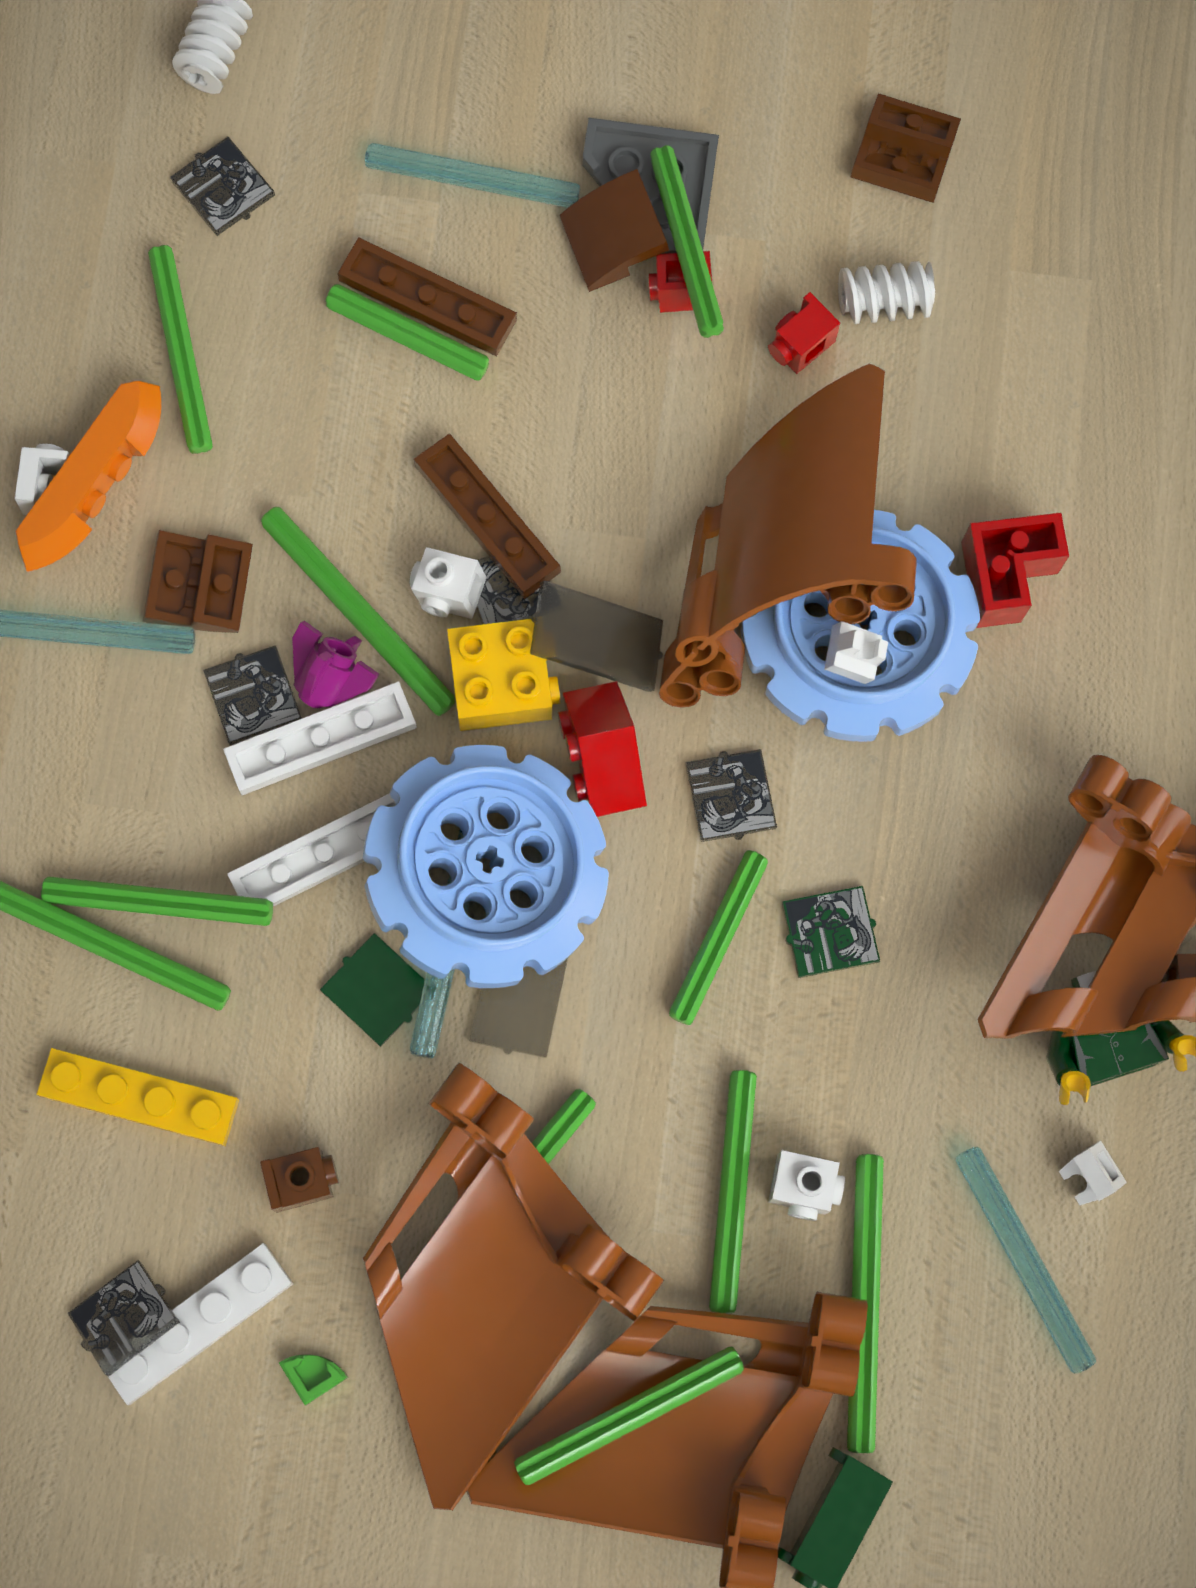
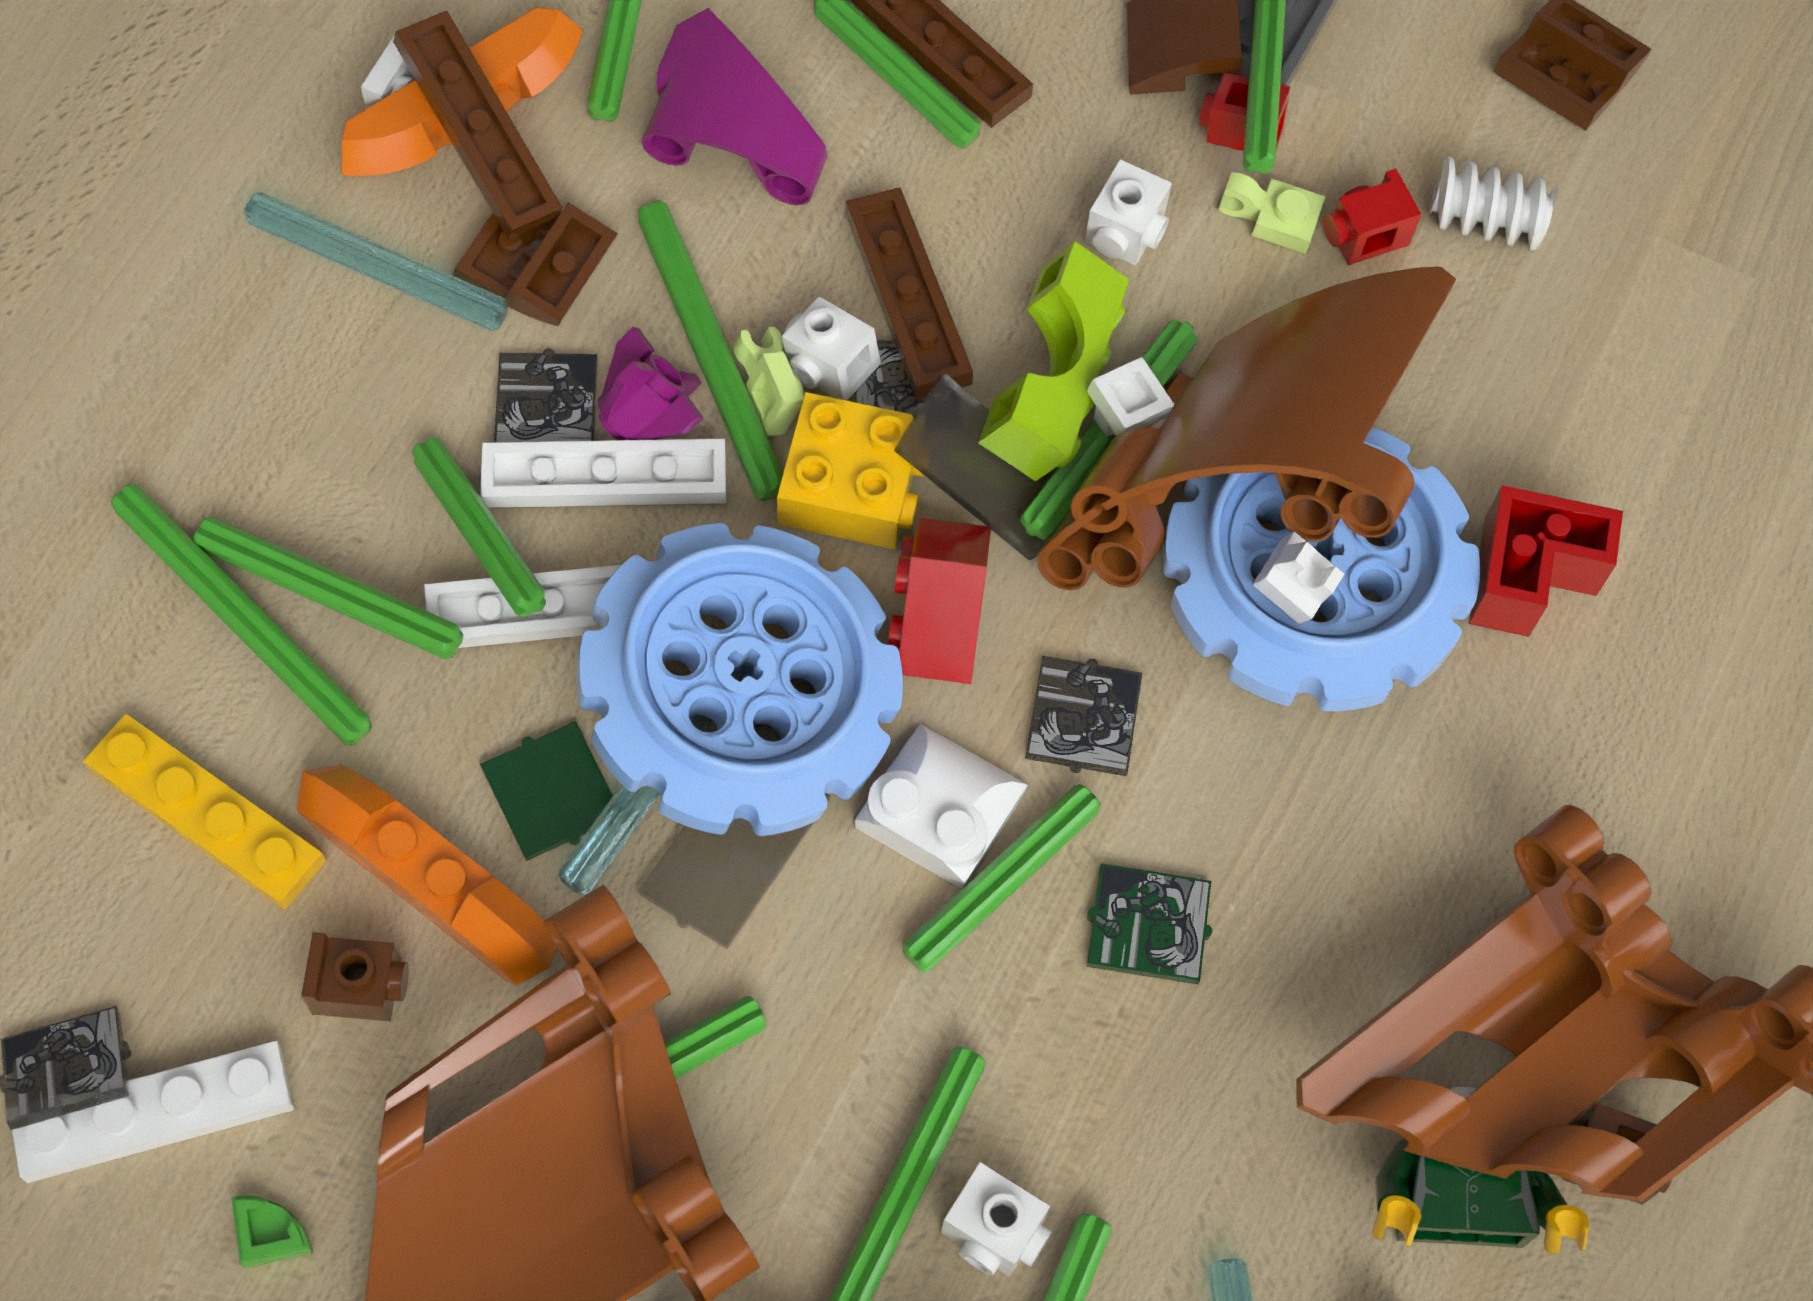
camera: 20 degrees right, 10 degrees down
(117, 499) = (477, 124): none -> reddish brown plate
(248, 815) = (479, 527): none -> bright green axle
(297, 414) = (726, 99): none -> magenta panel
(316, 1083) = (426, 871): none -> orange brick
(413, 623) = (771, 382): none -> yellowish green plate
(617, 487) = (1040, 416): none -> lime arch
(625, 394) = (1129, 213): none -> white brick
(656, 899) = (940, 806): none -> white slope
(672, 572) = (1056, 495): none -> bright green axle
(684, 552) = (1128, 398): none -> white tile
(736, 351) = (1281, 214): none -> yellowish green plate

